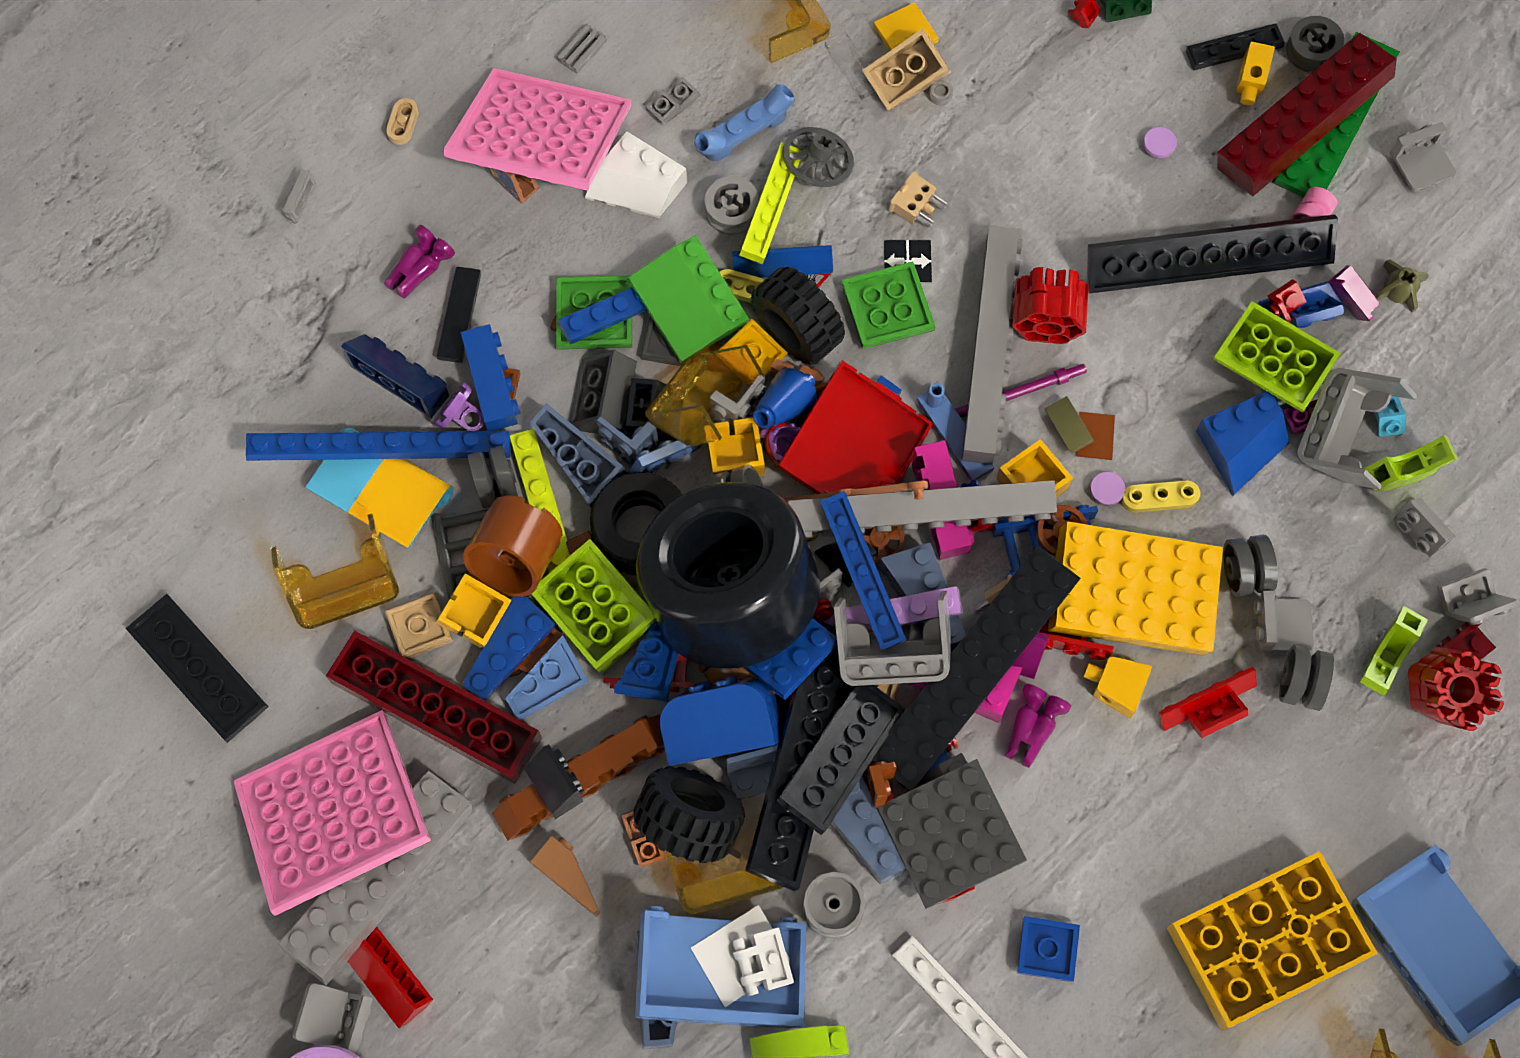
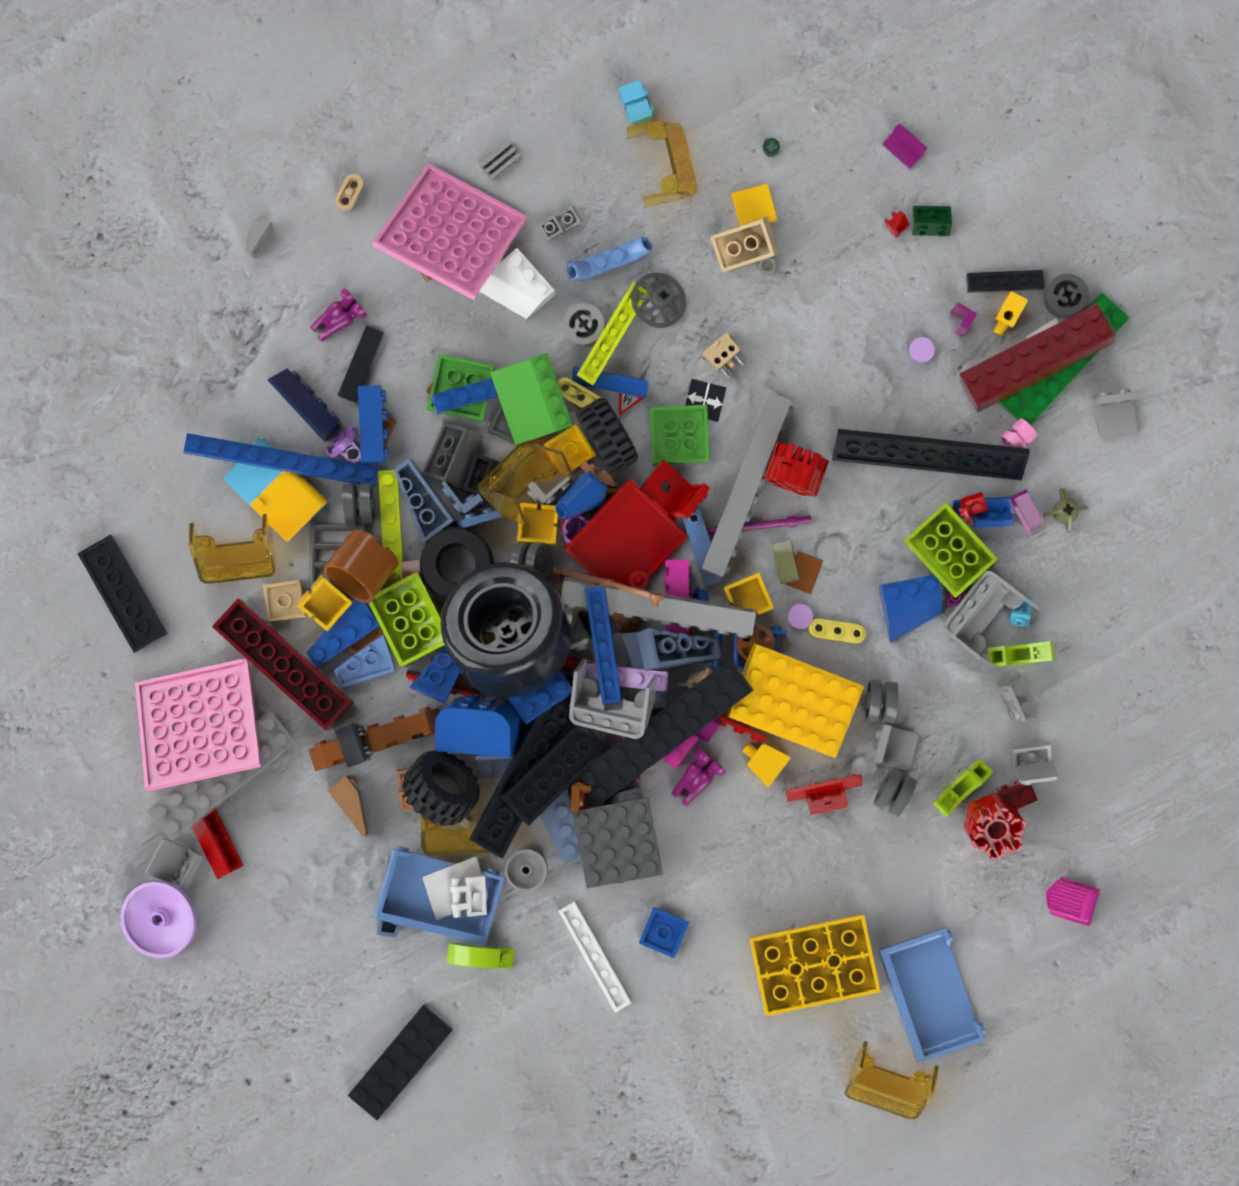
camera: 10 degrees right, 15 degrees up
(909, 374) = (681, 496): none -> red bracket
(959, 559) = (670, 650): none -> sand blue wedge
(1199, 87) = (966, 315): none -> magenta panel

